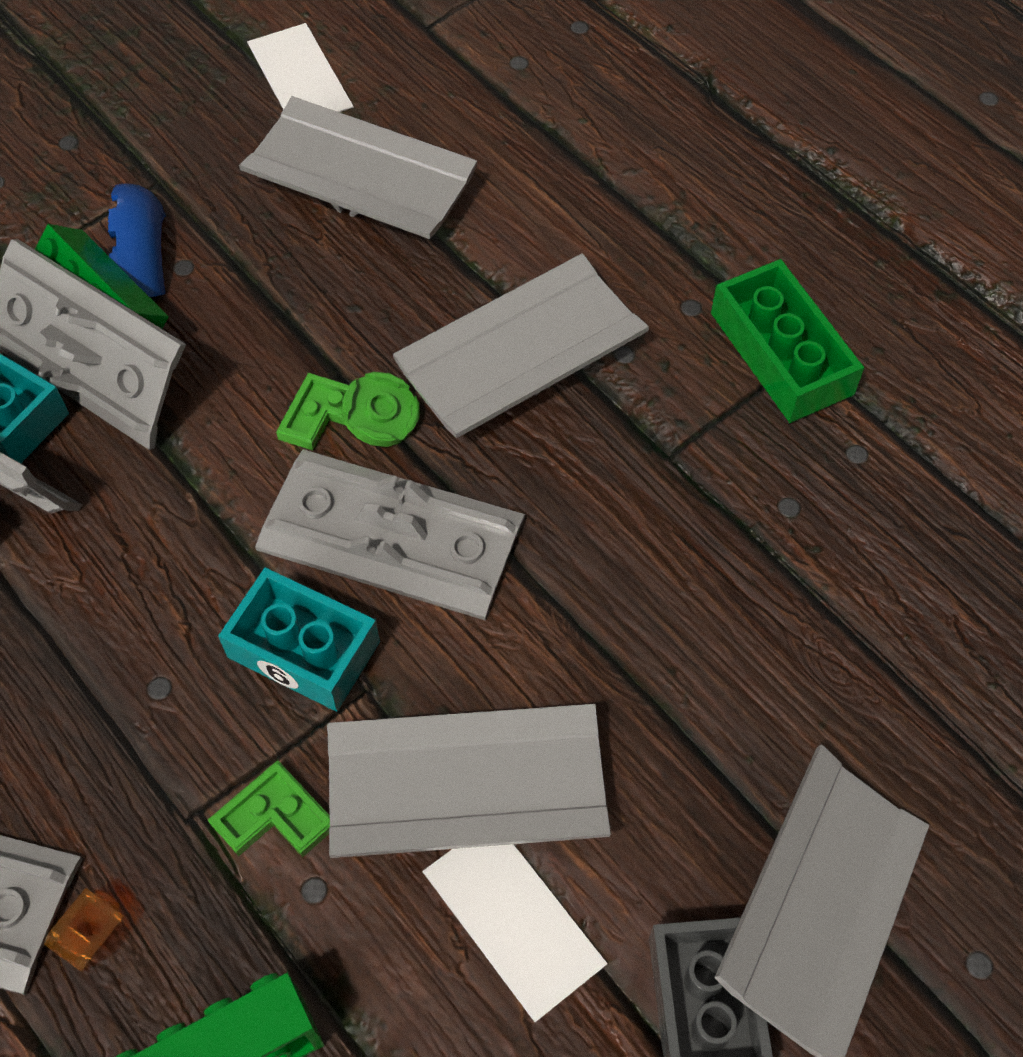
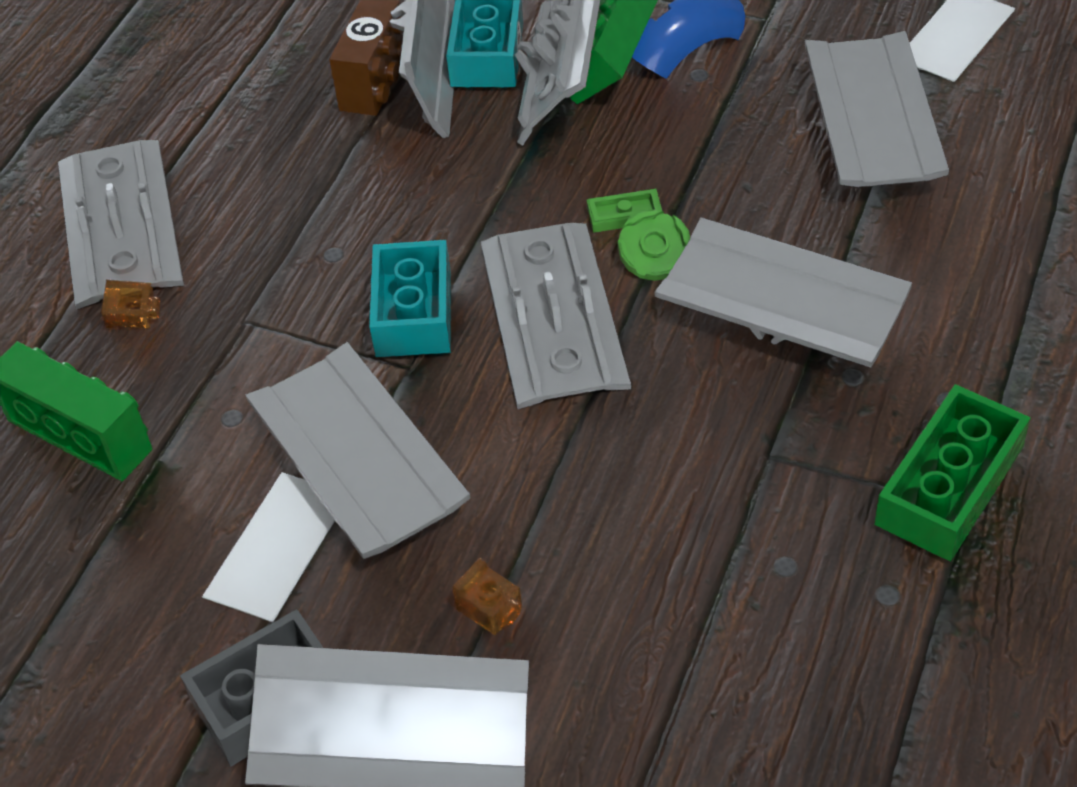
camera: 65 degrees right, 10 degrees down
(272, 801) = (272, 354): bright green tile -> none
(698, 761) = (487, 597): none -> clear orange brick

